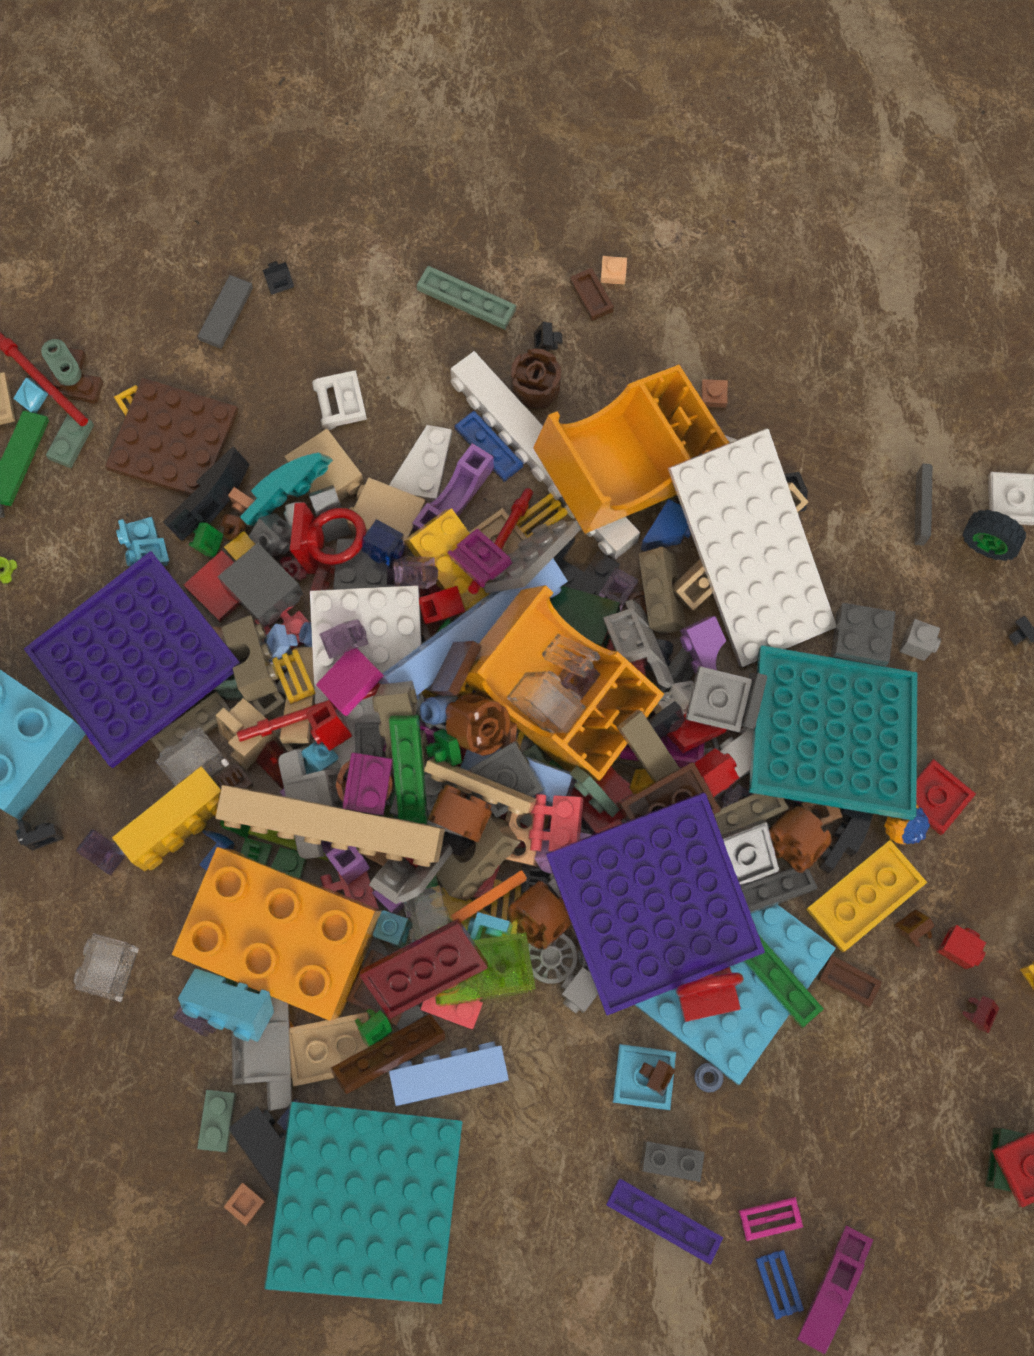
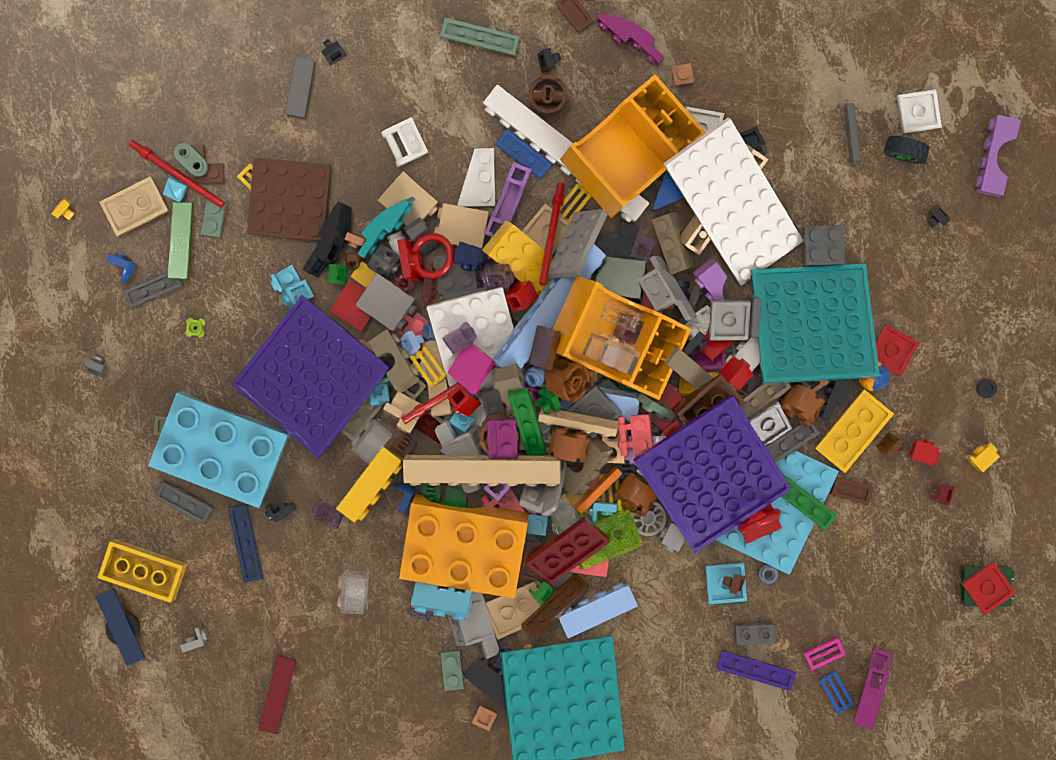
camera: 10 degrees left, 15 degrees up
(217, 700) = (380, 395): none -> medium azure tile
(480, 557) = (542, 258): magenta plate -> none
(652, 326) = (626, 31): none -> magenta slope
(920, 640) = (864, 239): light grey brick -> none

